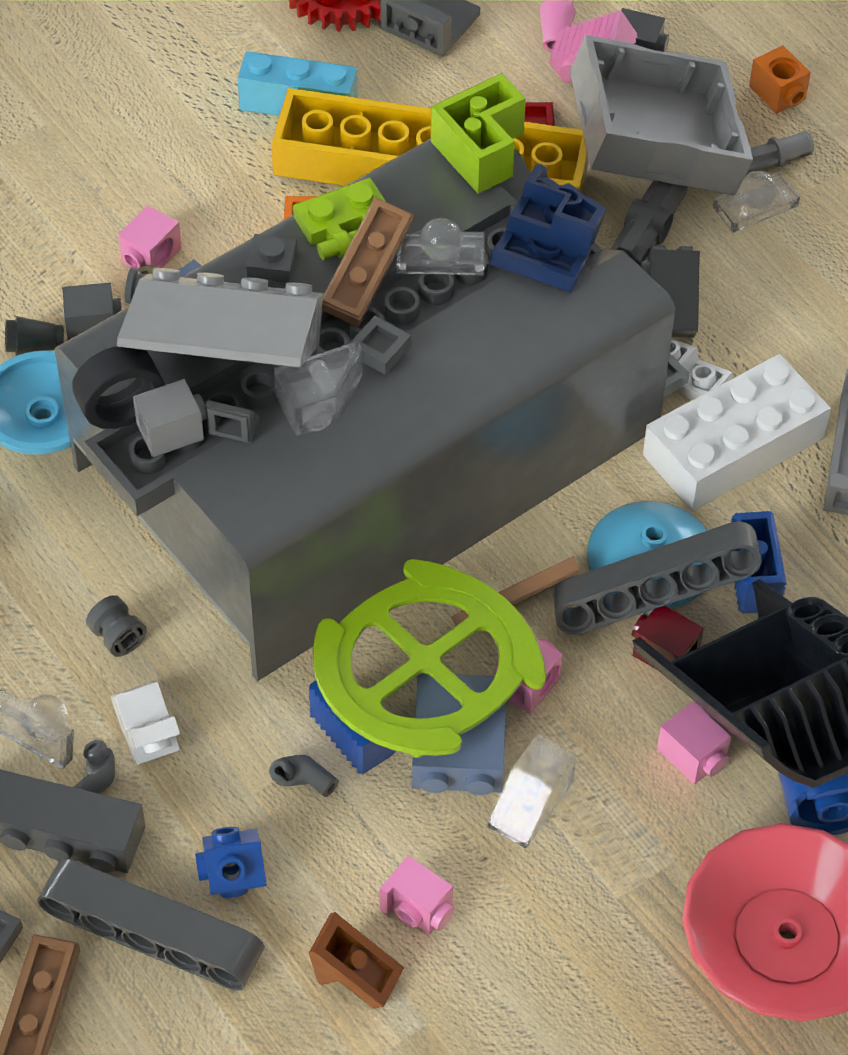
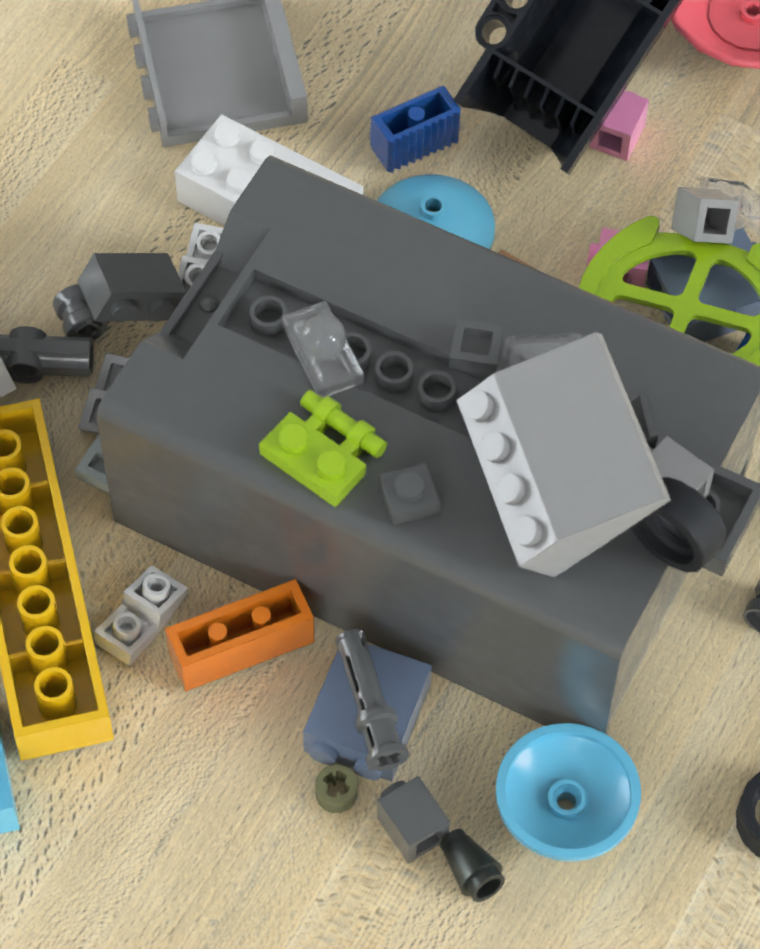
camera: 115 degrees left, 5 degrees up
(149, 239) = (284, 808): bright pink brick -> none
(366, 261) = (381, 394): medium nougat tile -> none
(478, 131) = (159, 363): lime brick -> none
(513, 710) = (705, 215): none -> light grey brick
(549, 232) = (246, 268): dark blue slope -> none
(667, 633) = (529, 173): dark red brick -> none
(672, 563) = (490, 176): dark grey beam -> none

